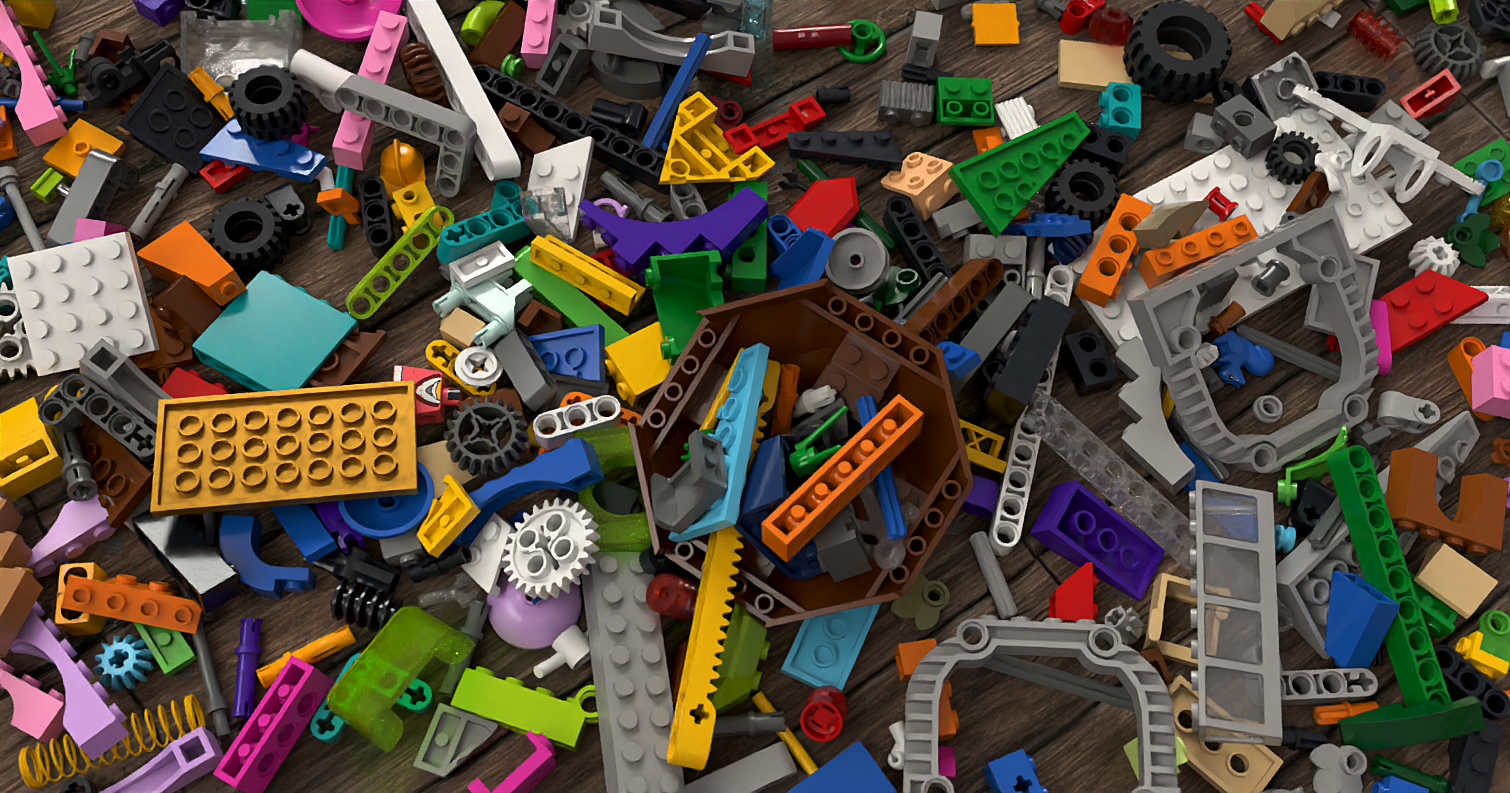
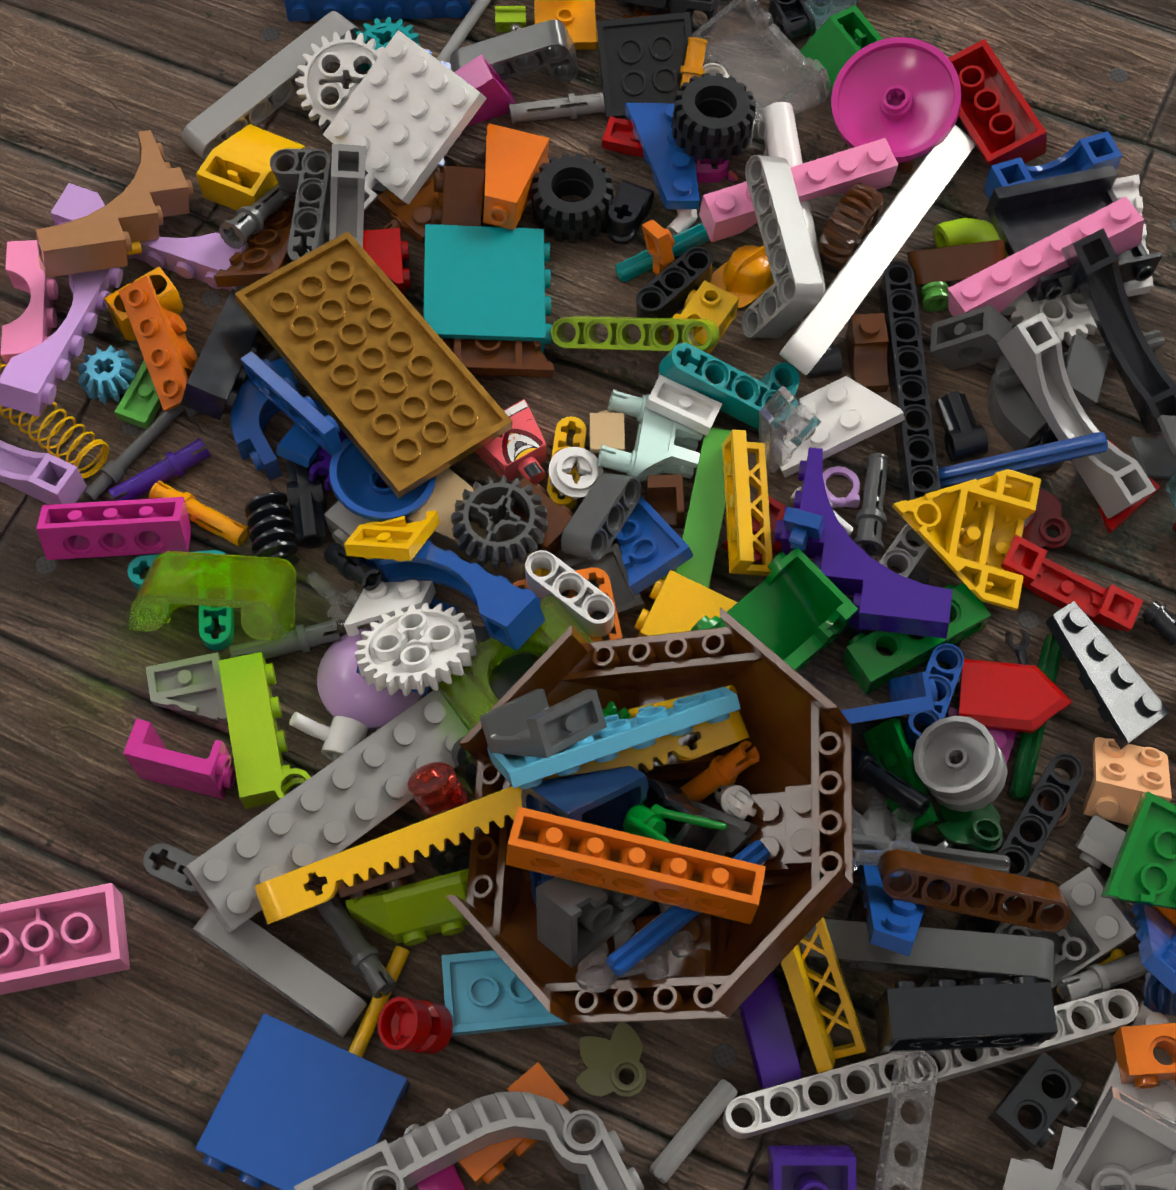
camera: 65 degrees right, 0 degrees up
(271, 527) = (286, 397): none -> blue plate
(639, 243) = (802, 526): none -> blue tile

